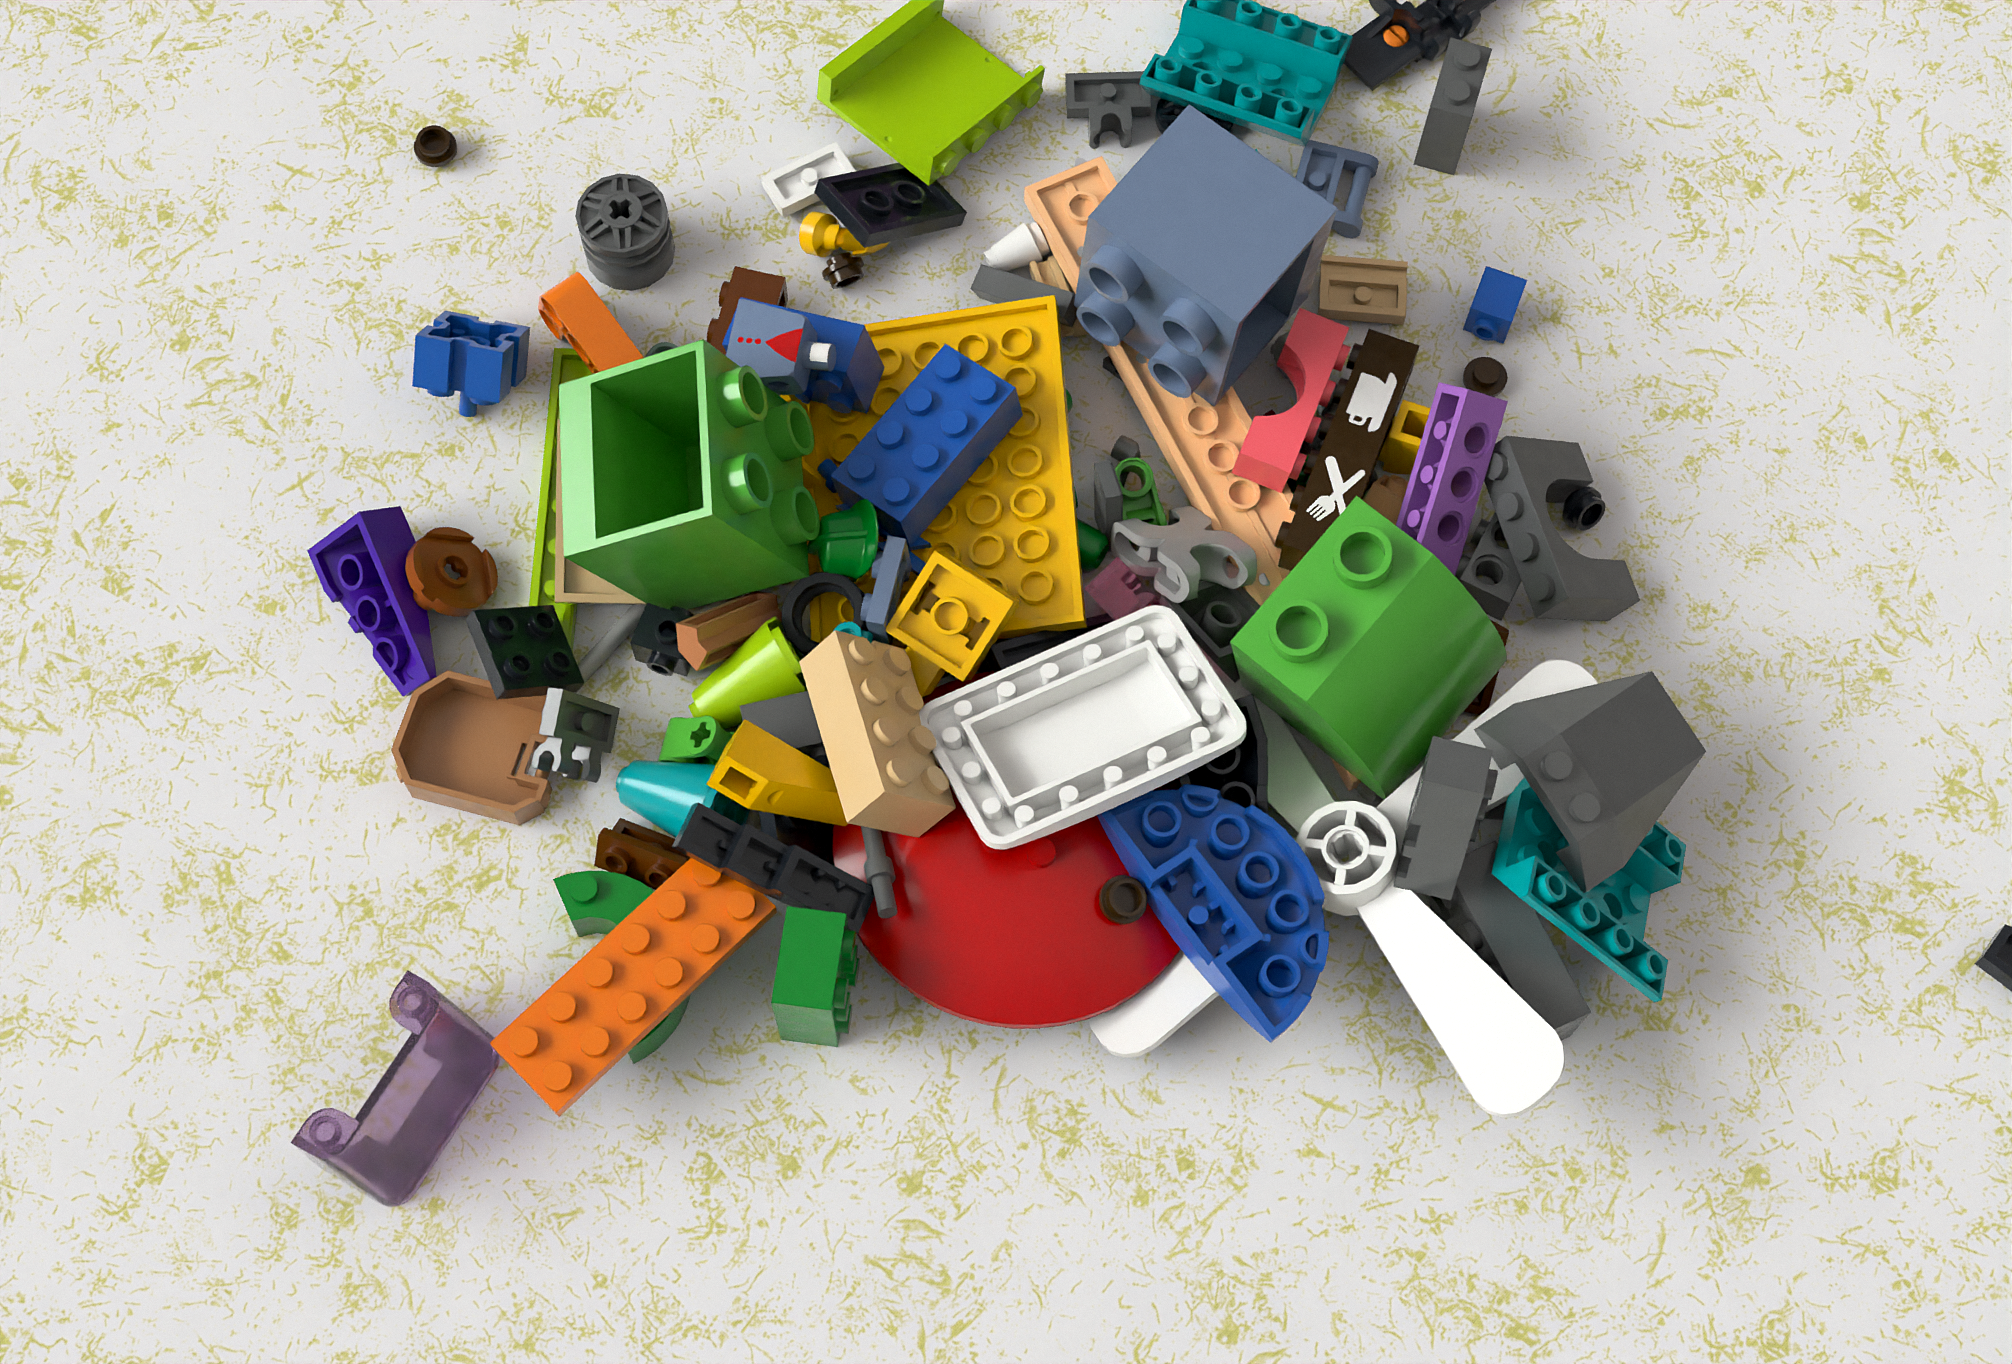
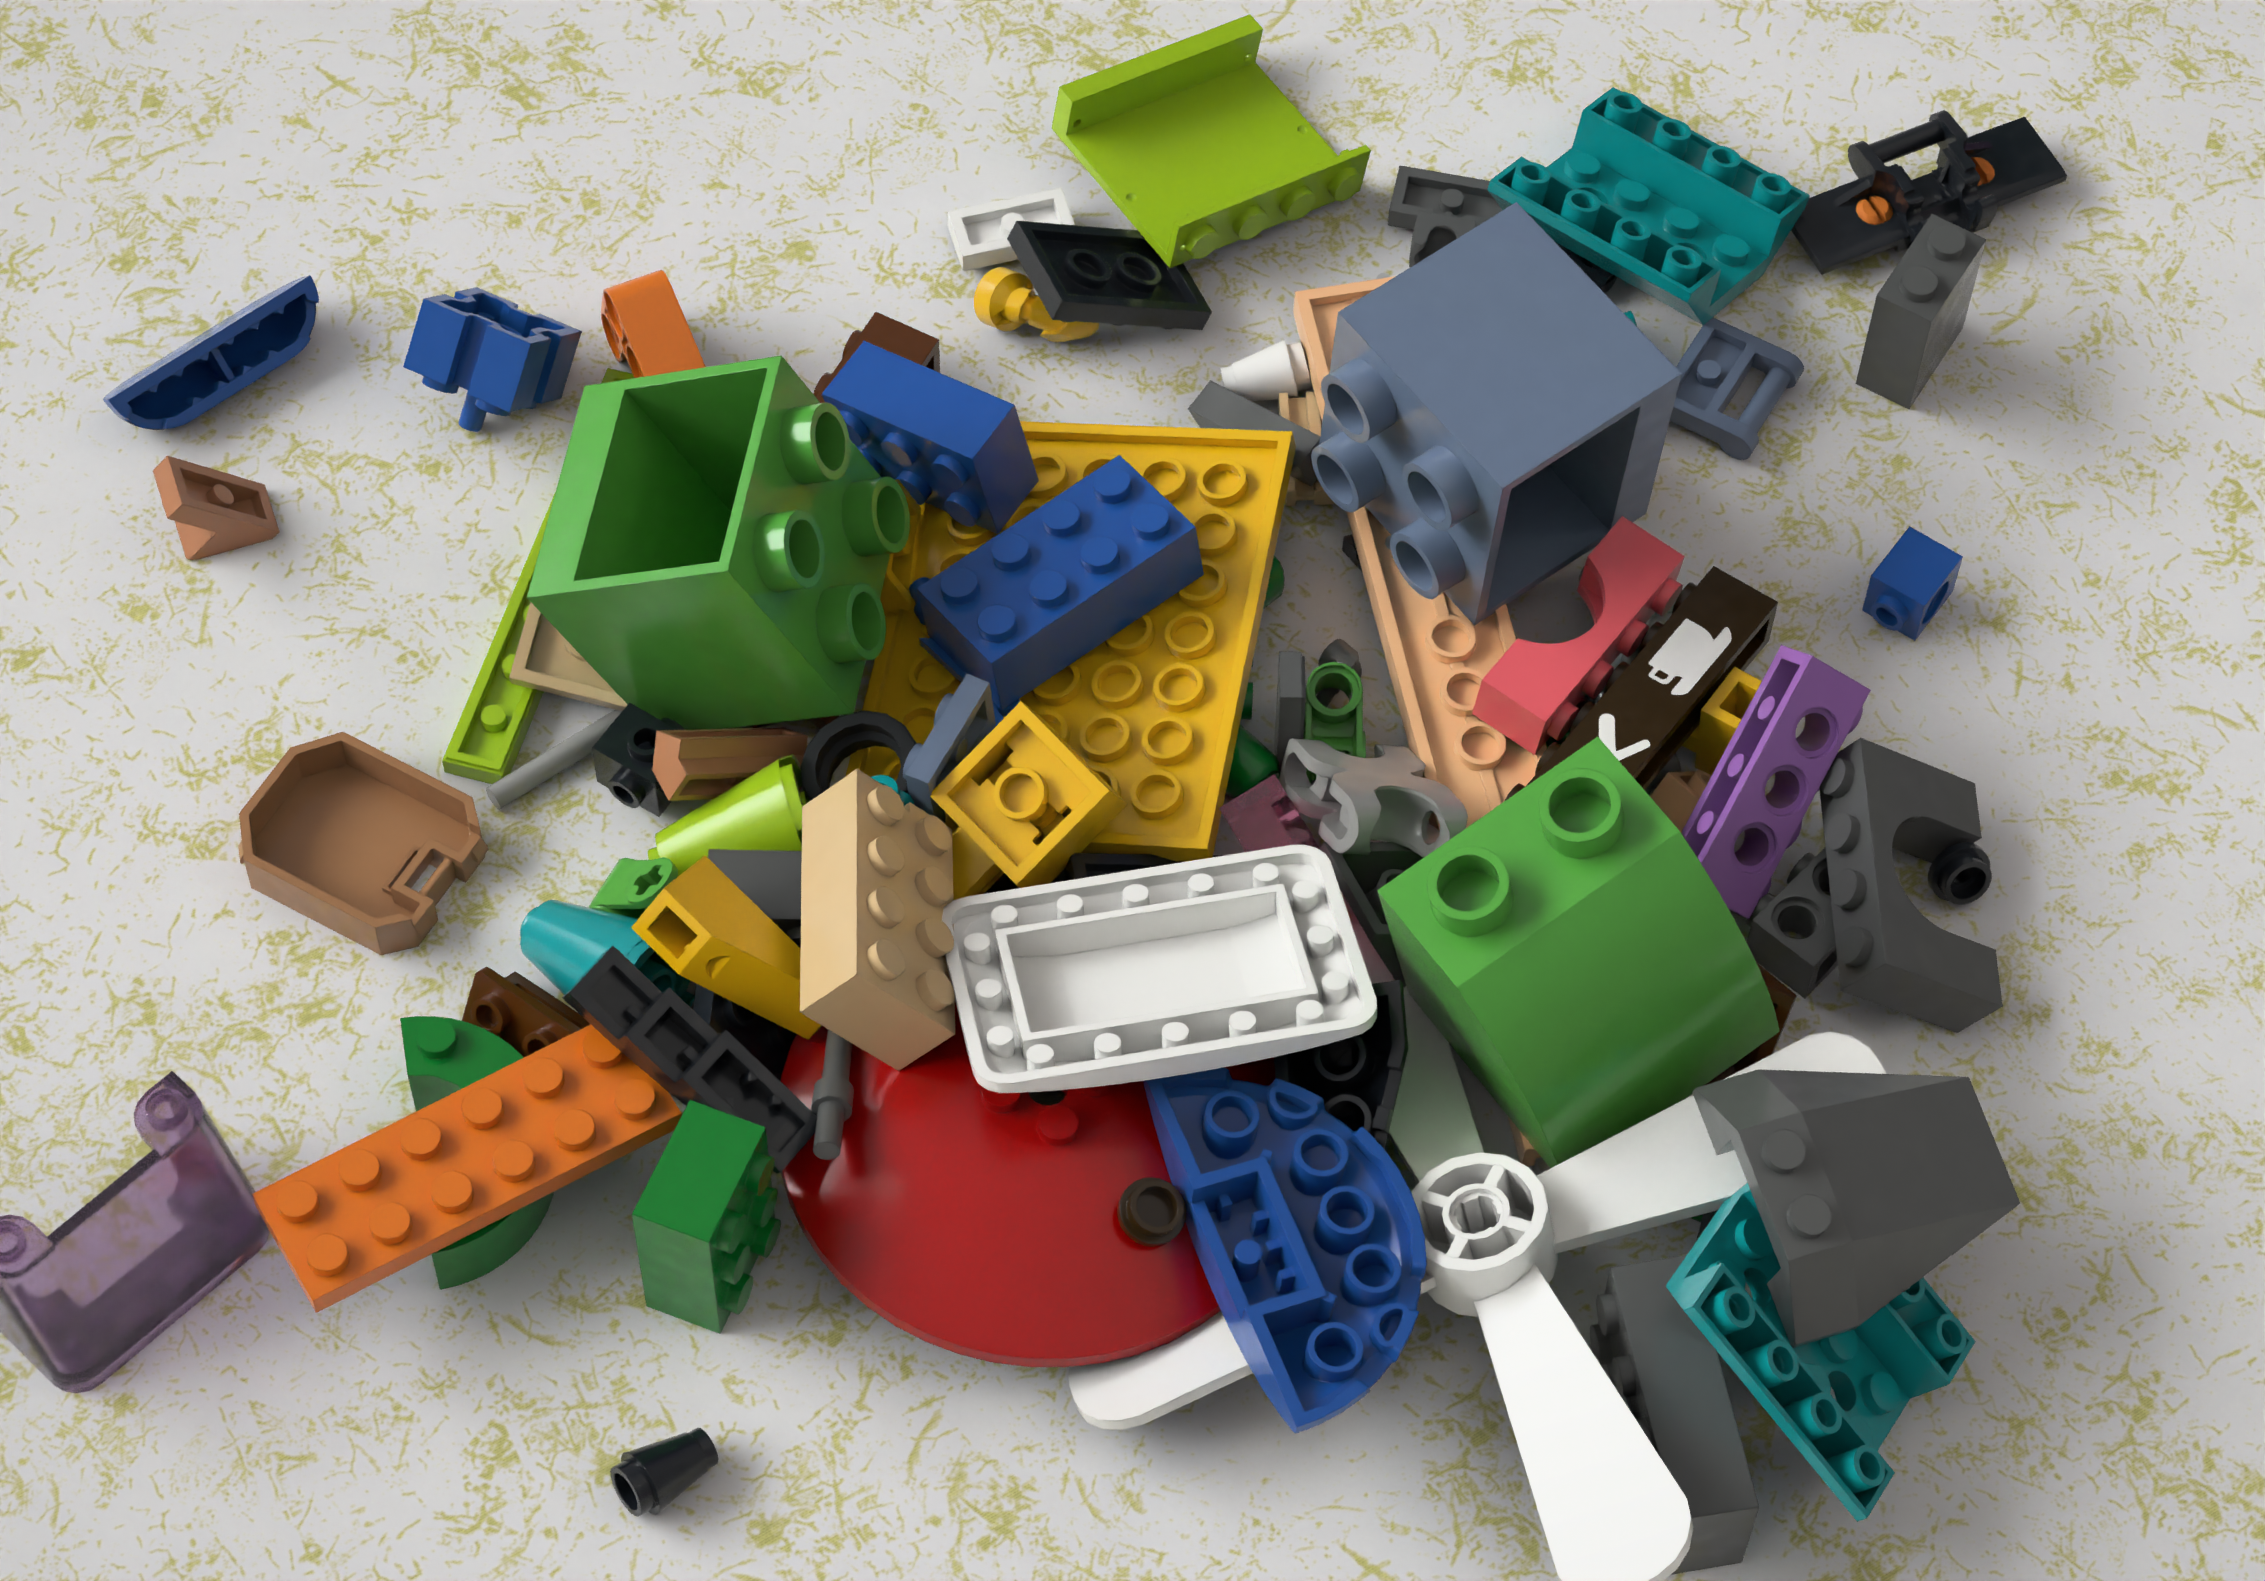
camera: 15 degrees right, 10 degrees down
(273, 405) = (219, 360): none -> blue brick
(300, 518) = (213, 508): none -> nougat slope
(366, 572) = (287, 599): dark purple wedge -> none
(435, 146) = (527, 86): dark brown plate -> none
(439, 591) = (360, 629): dark orange plate -> none
(524, 651) = (450, 728): black plate -> none
(577, 721) = (498, 833): dark grey plate -> none
(625, 231) = (743, 240): dark grey wheel -> none
(778, 346) = (891, 406): sand blue torso -> none
(829, 1162) = (662, 1470): none -> black cone
(843, 270) = (1023, 351): dark brown plate -> none
(847, 541) = (912, 676): green piece -> none
(1362, 289) = (1732, 525): tan plate -> none
(1444, 816) = (1617, 1186): dark grey wedge -> none
(1485, 376) = (1877, 671): dark brown plate -> none

